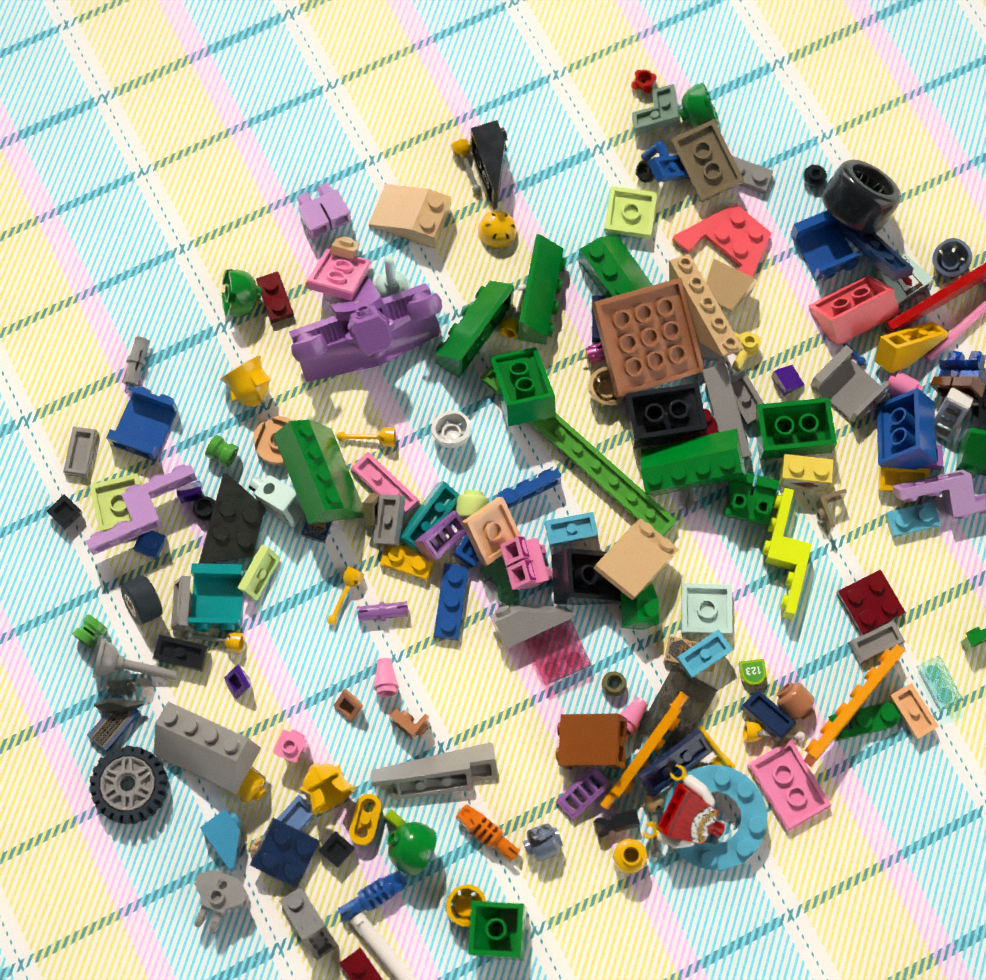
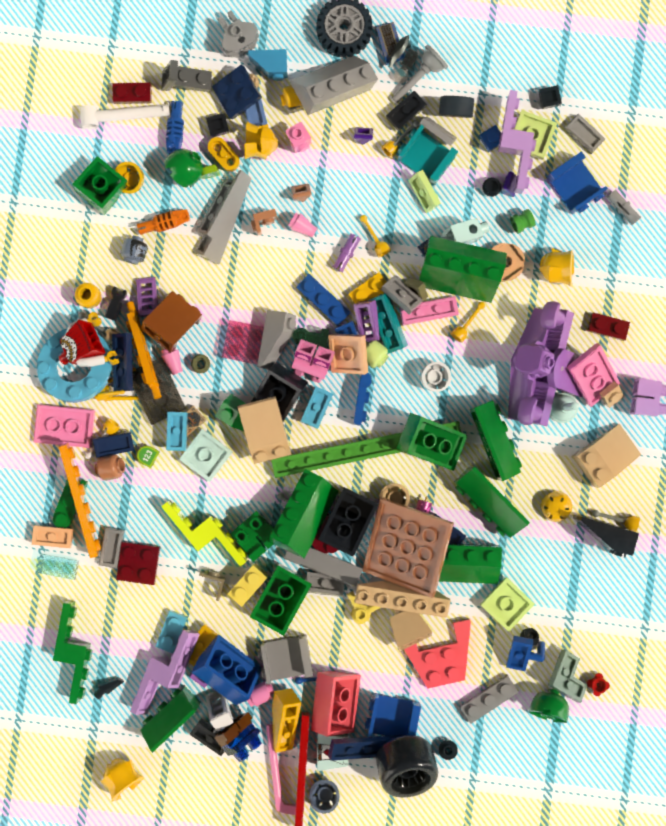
camera: 130 degrees right, 15 degrees up
(89, 631) = (458, 63): bright green wheel -> none
(233, 524) = (467, 195): pearl dark grey wing -> none
(239, 293) = (625, 303): green cylinder -> none
(510, 326) = (482, 465): yellow hinge -> none
(707, 161) = (507, 682): dark tan plate -> none
(787, 379) = (319, 622): dark purple slope -> none

